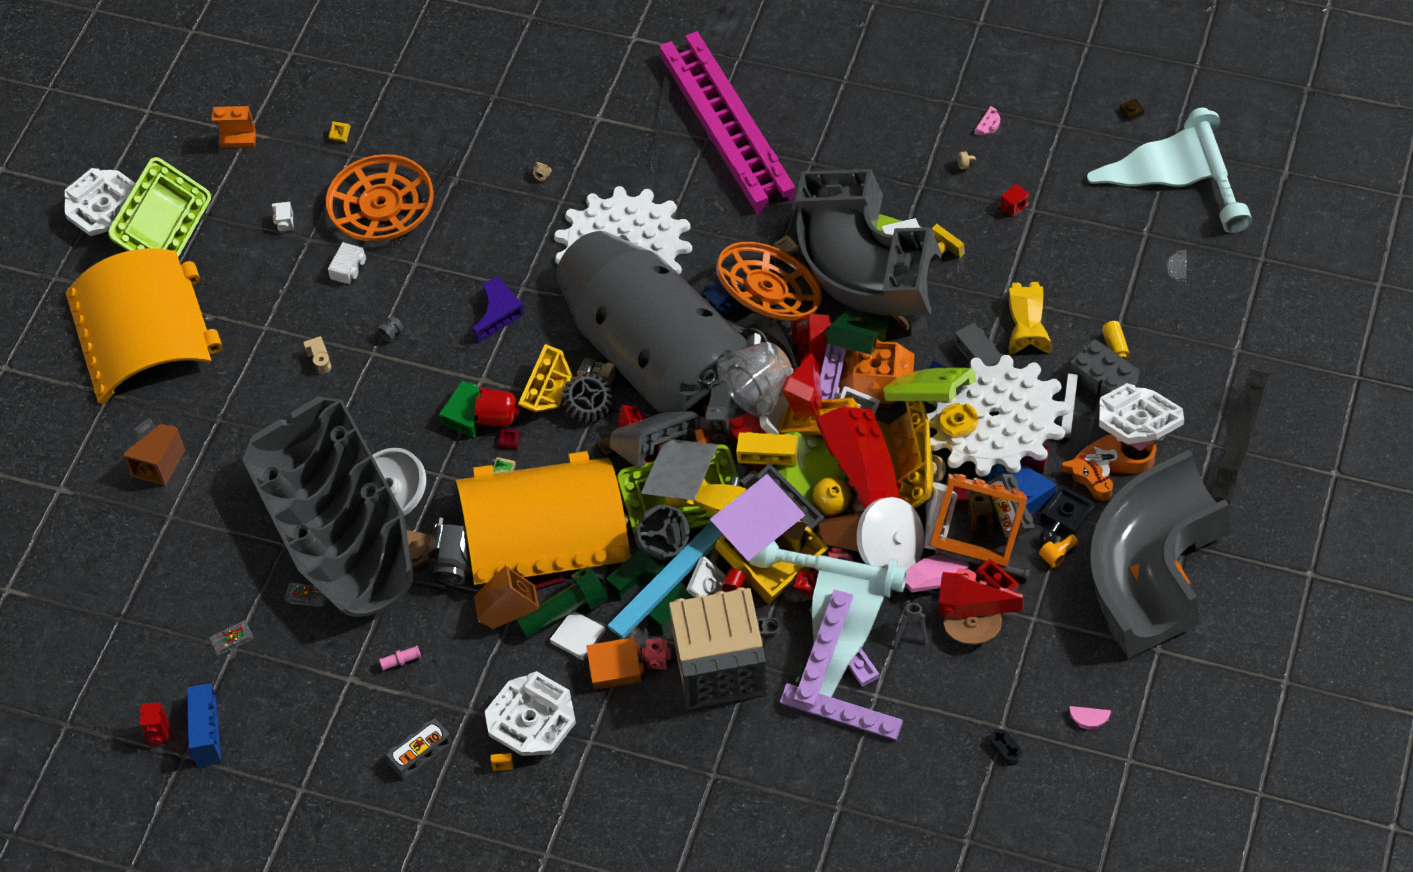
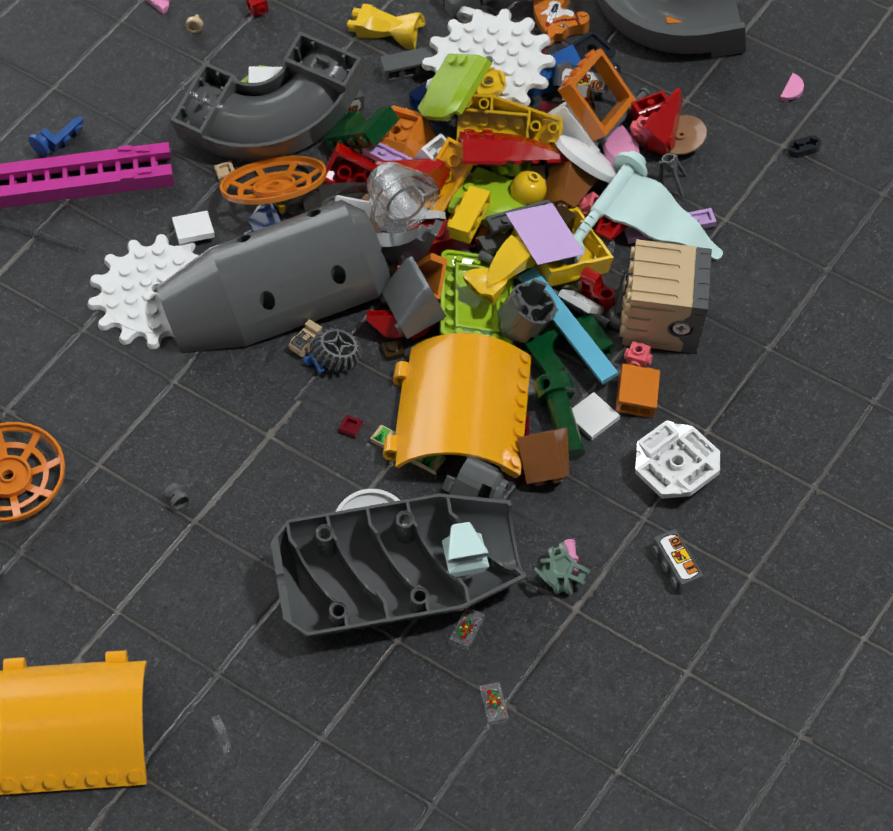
camera: 75 degrees left, 0 degrees up
(154, 724) = (583, 780): red brick -> none
(156, 455) = (252, 728): dark orange slope -> none
(203, 725) = (593, 739): blue wedge -> none
(320, 356) = (179, 565): tan leg -> none
(346, 263) = (74, 519): white brick -> none
(357, 553) = (465, 551): none -> light aqua piece
(379, 648) = (561, 566): none -> sand green piece
(460, 410) = (304, 453): green slope -> none
(496, 408) = (317, 423): red cylinder -> none
(501, 311) = (191, 398): dark purple arch -> none
(502, 762) = (713, 496): light orange tile -> none
(542, 169) = (39, 332): tan tile -> none
(546, 381) = (303, 378): yellow wedge -> none
(679, 469) = (467, 280): flat silver sticker -> none
(703, 242) = (193, 227): none -> white tile
(769, 104) = (46, 140): none -> blue piece
(824, 648) = (680, 228): lavender plate -> none
(846, 713) = (739, 241): lavender plate -> none
(948, 241) = (275, 56): yellow tile -> none
(1055, 553) = (630, 68): light orange pin -> none

